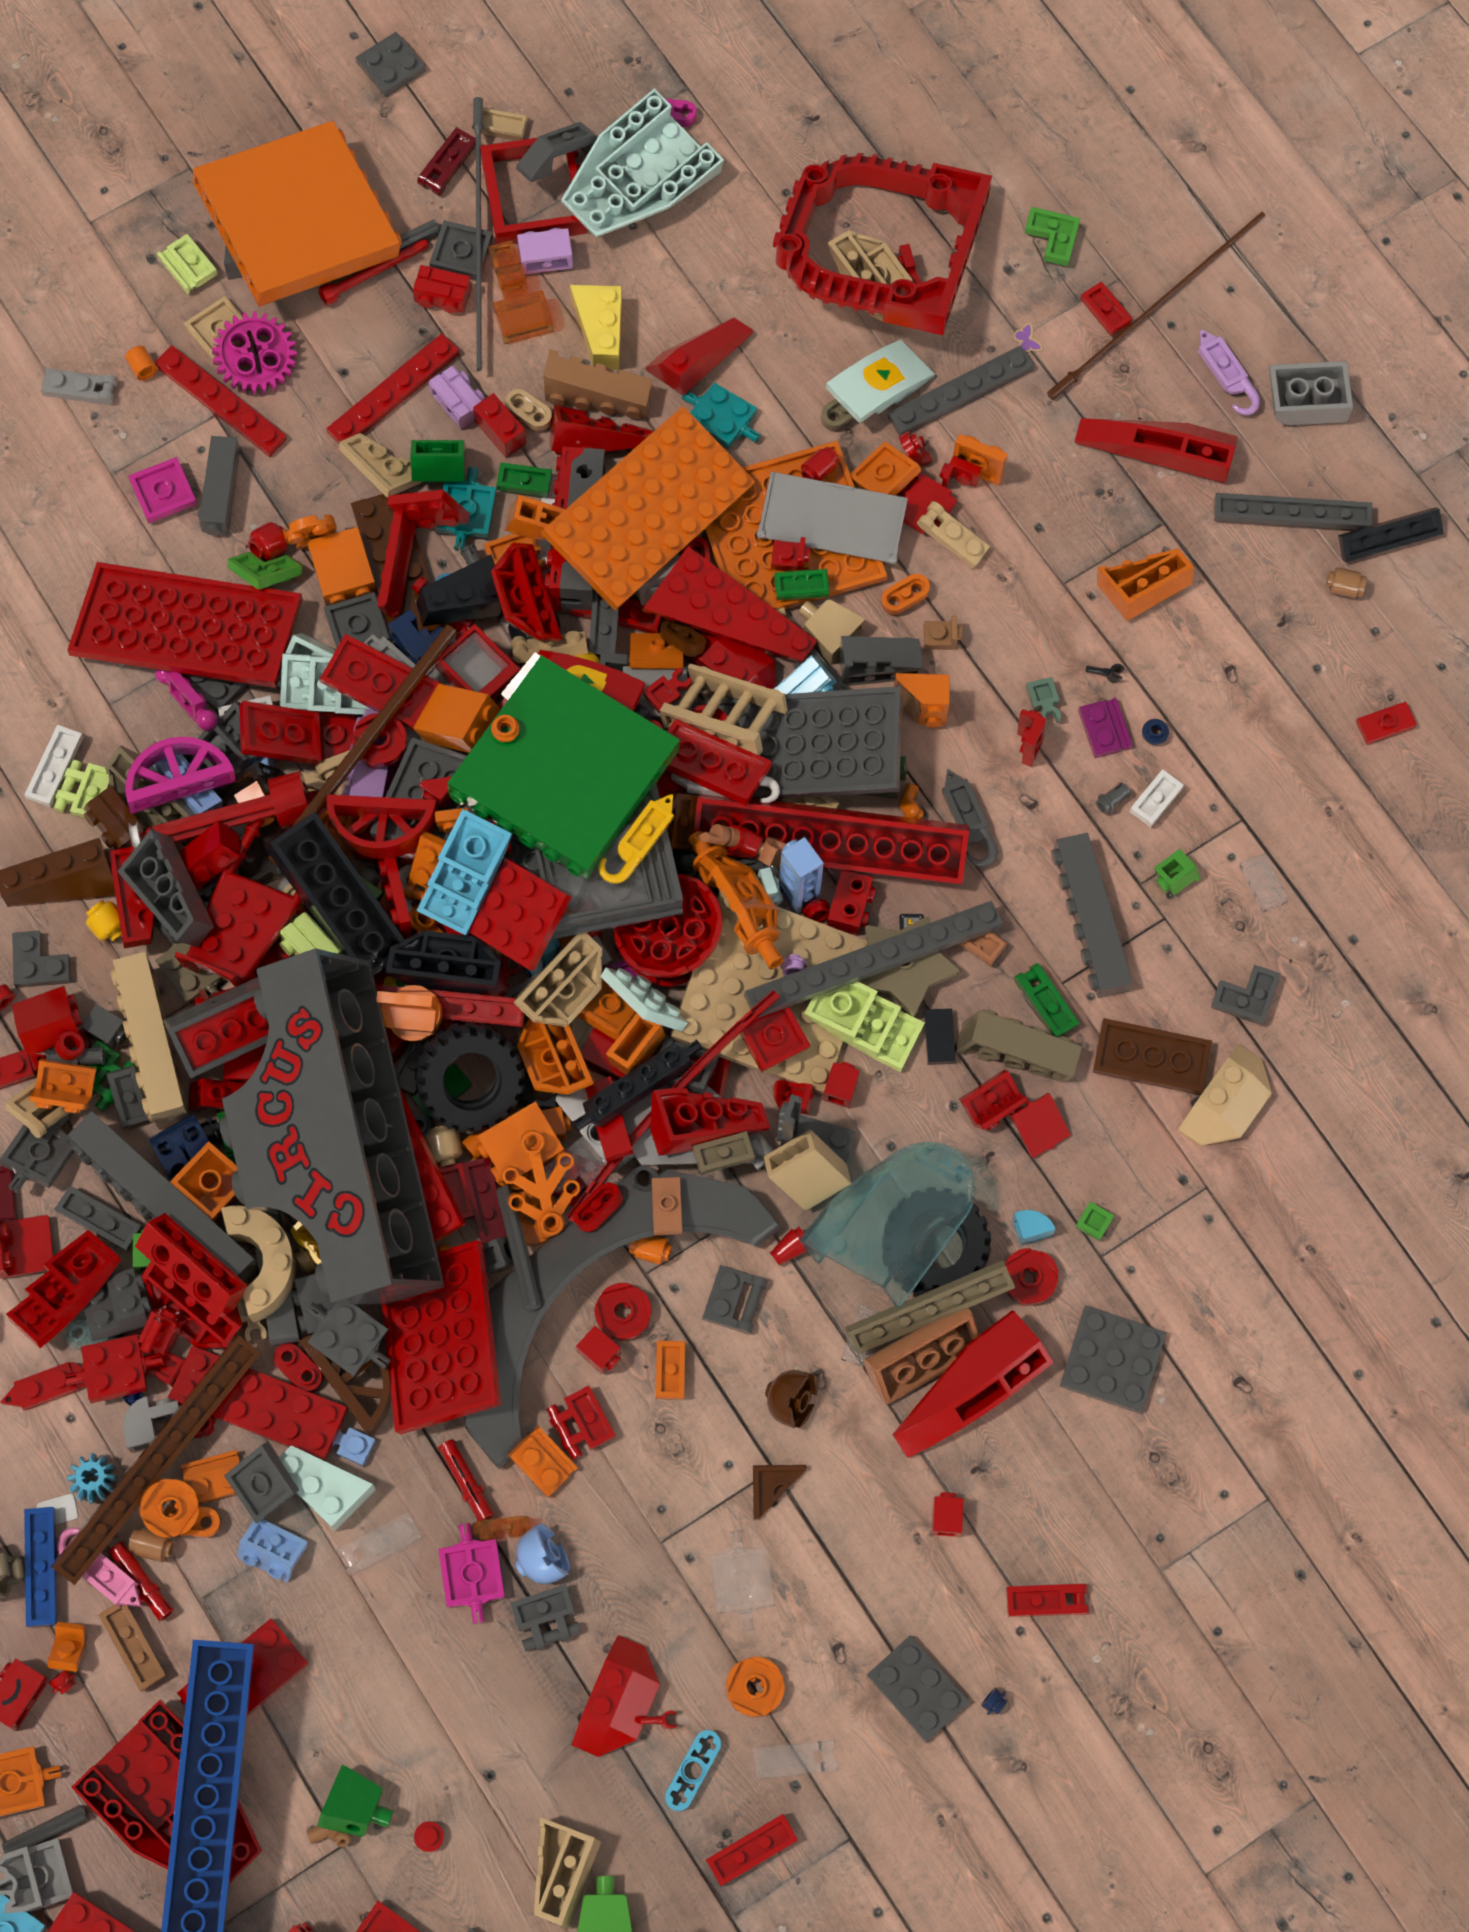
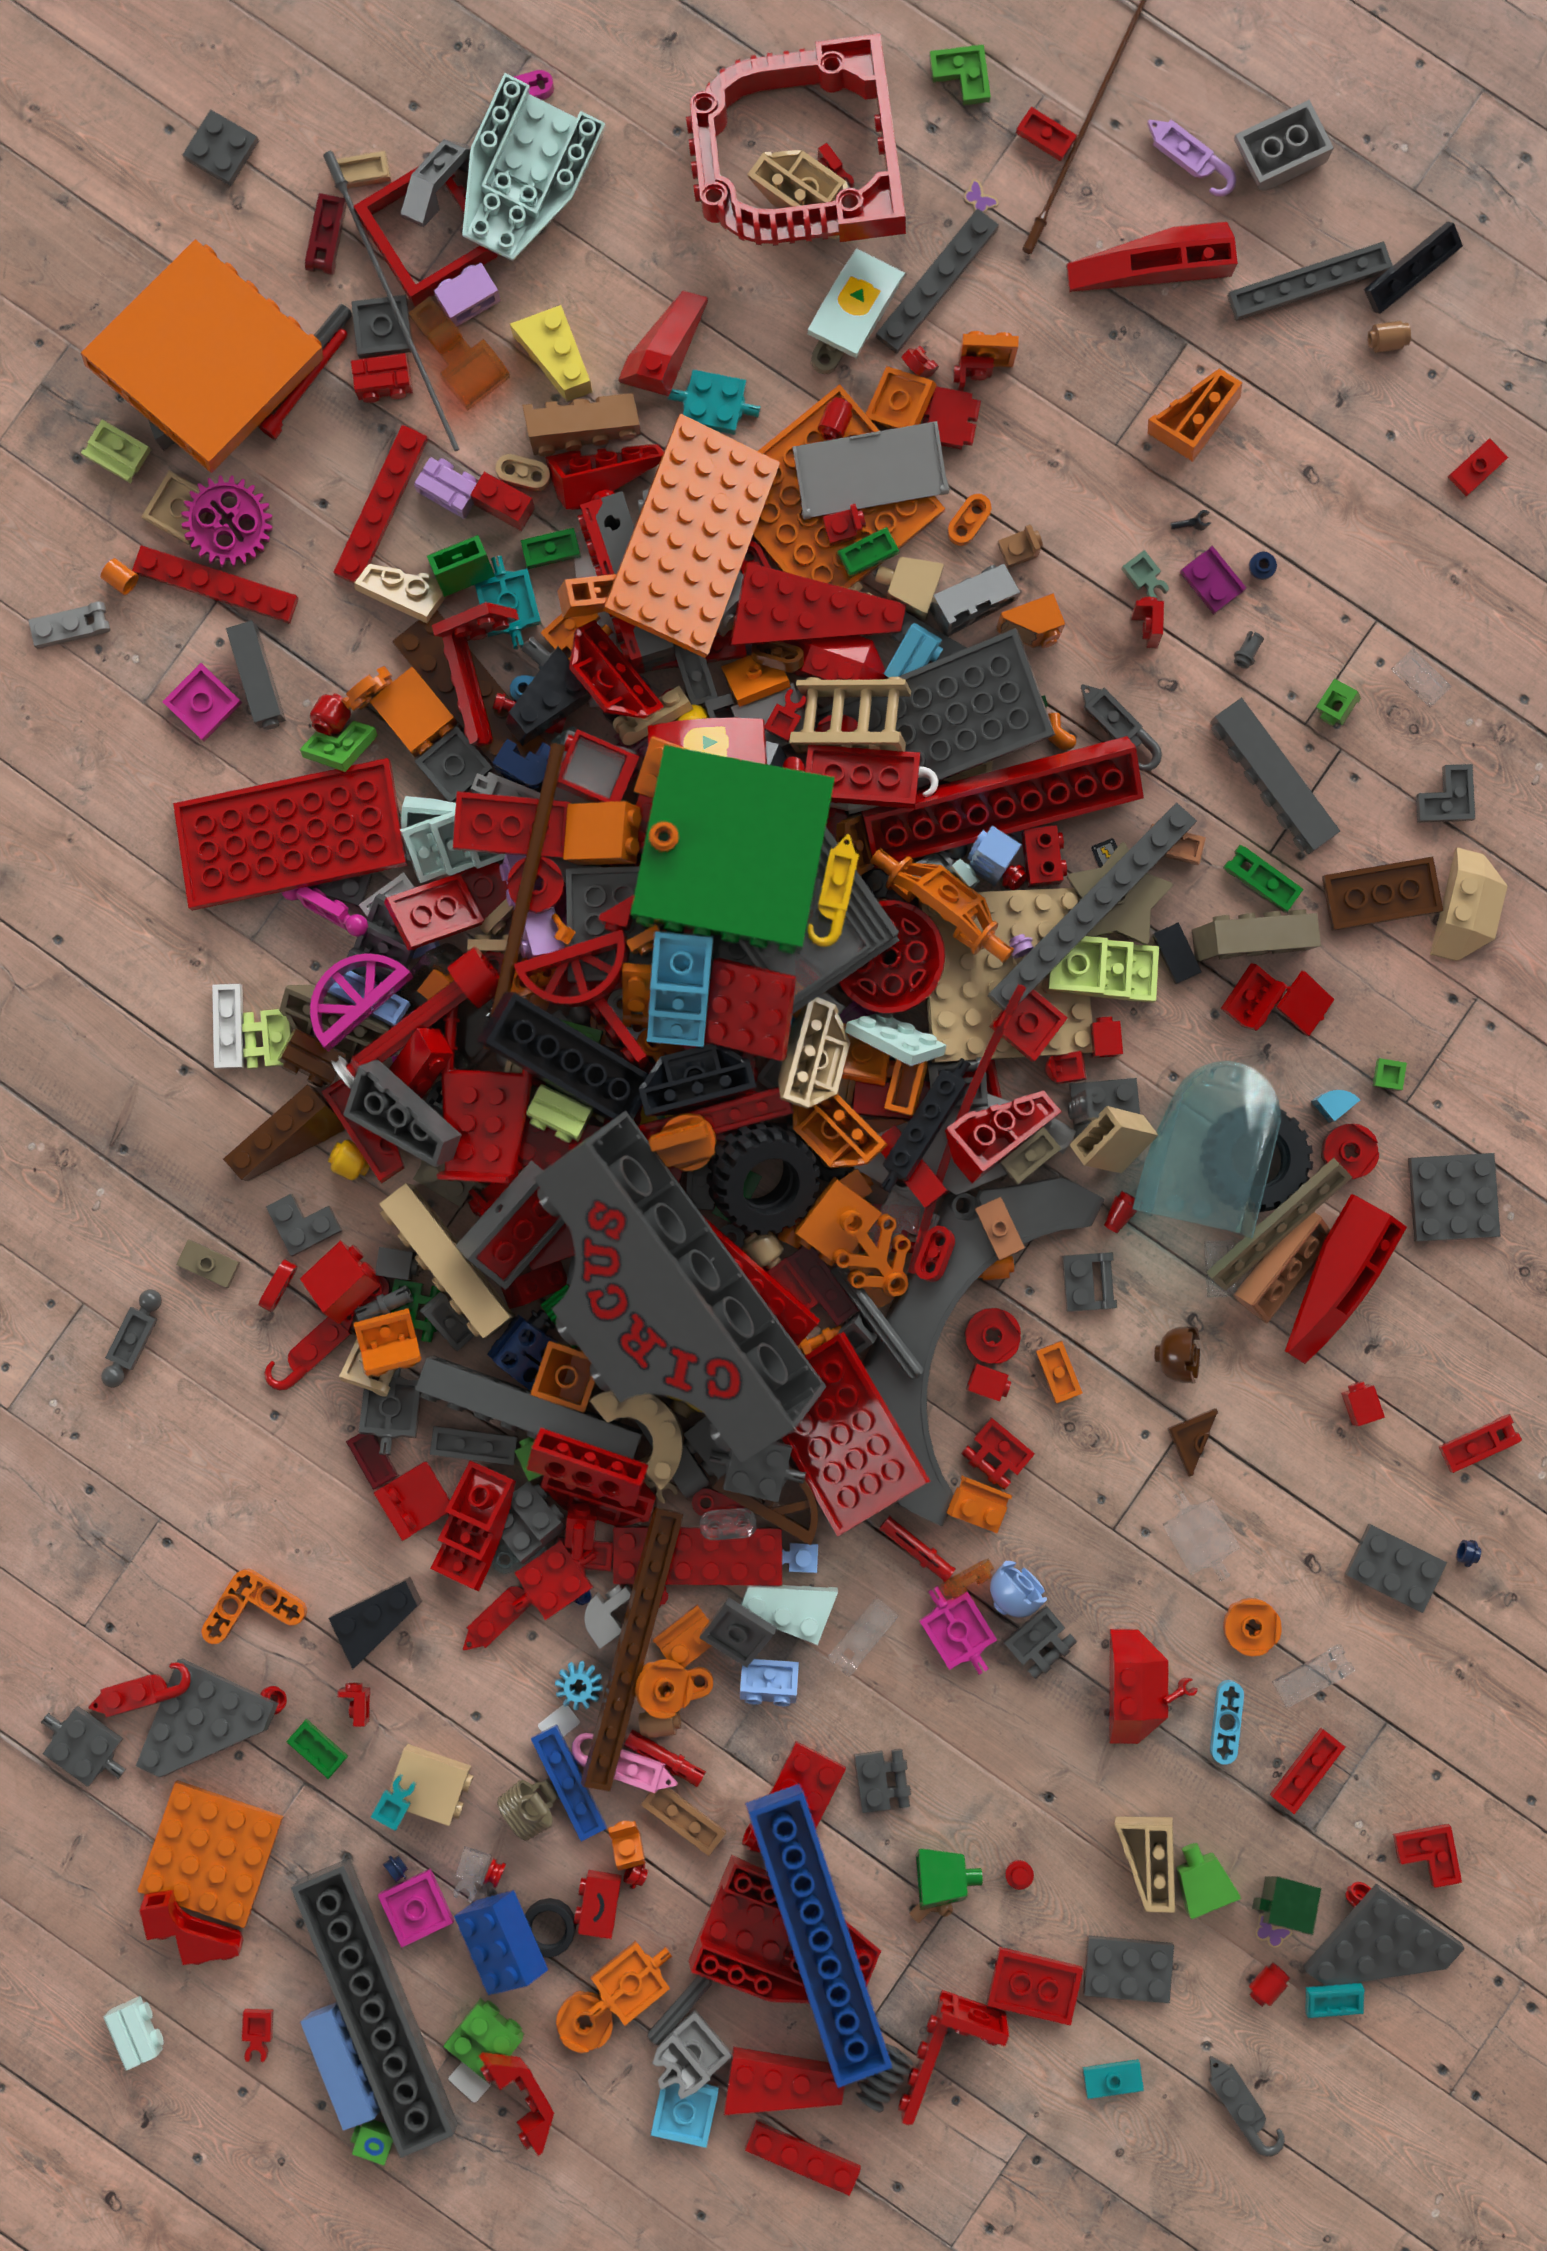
camera: 20 degrees left, 15 degrees up
(62, 1047) = (374, 1292): red piece -> none
(298, 1380) = (728, 1524): none -> clear plate
(328, 1687) = (873, 1782): none -> dark grey plate
(384, 789) = (563, 933): none -> orange hand
(745, 842) = (930, 842): nougat piece -> none
(953, 535) = (992, 439): tan plate -> none
(1156, 798) = (1290, 633): white plate -> none

